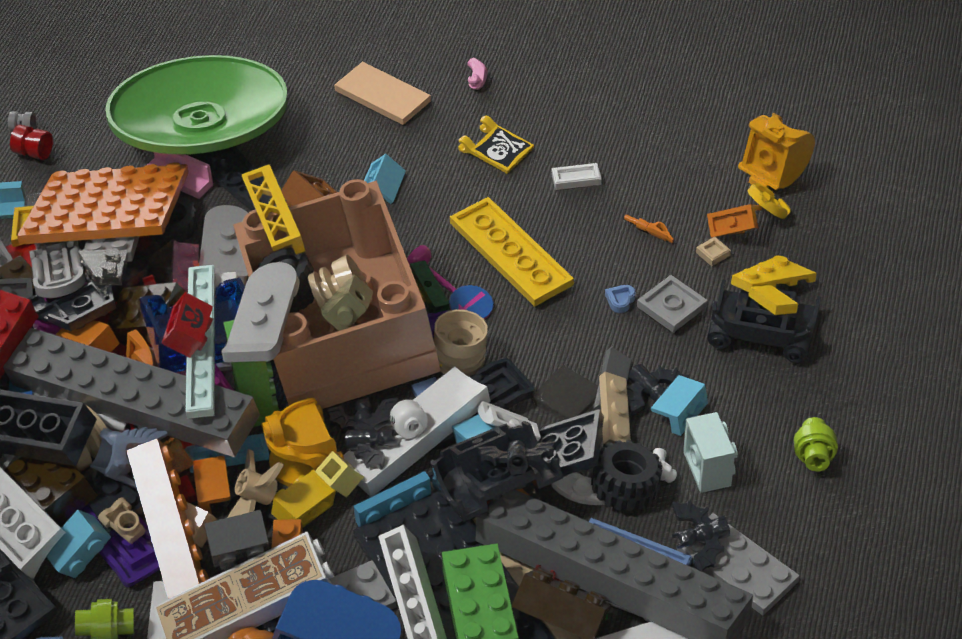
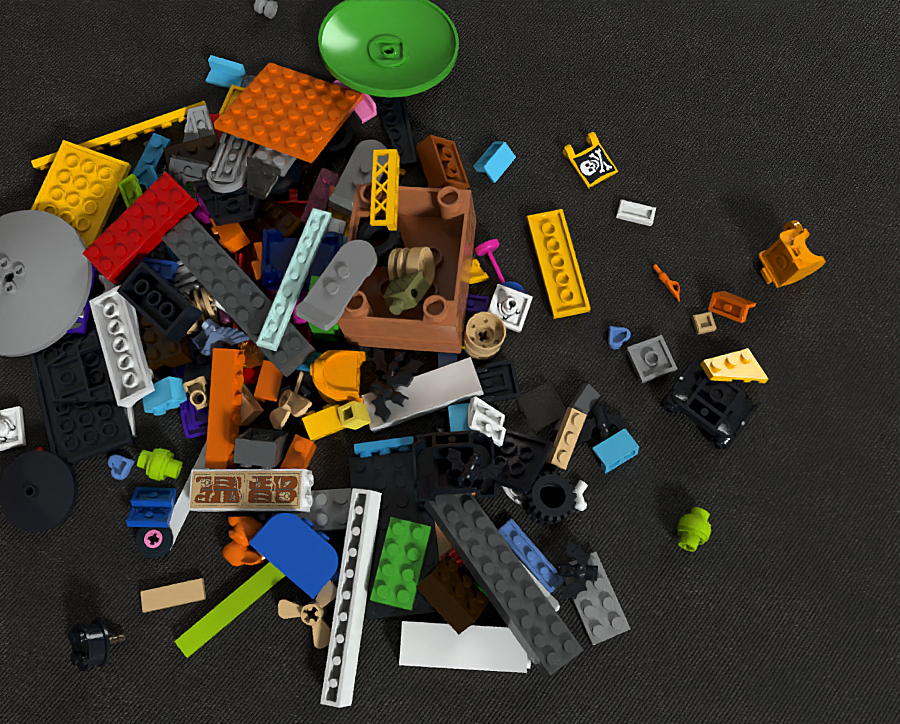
camera: 20 degrees right, 25 degrees up
(31, 141) = (264, 28): red wheel -> none
(188, 325) = (284, 270): red brick -> none
(382, 93) = (529, 77): light nougat tile -> none
(408, 416) = (417, 391): white head -> none
(429, 287) = (485, 287): dark green piece -> none
(479, 74) = (607, 88): bright pink arm -> none
(479, 301) = (511, 301): none -> white plate
(709, 452) = (615, 505): light aqua brick -> none
(767, 200) = (764, 298): yellow tile -> none
(773, 299) = (722, 397): yellow tile -> none

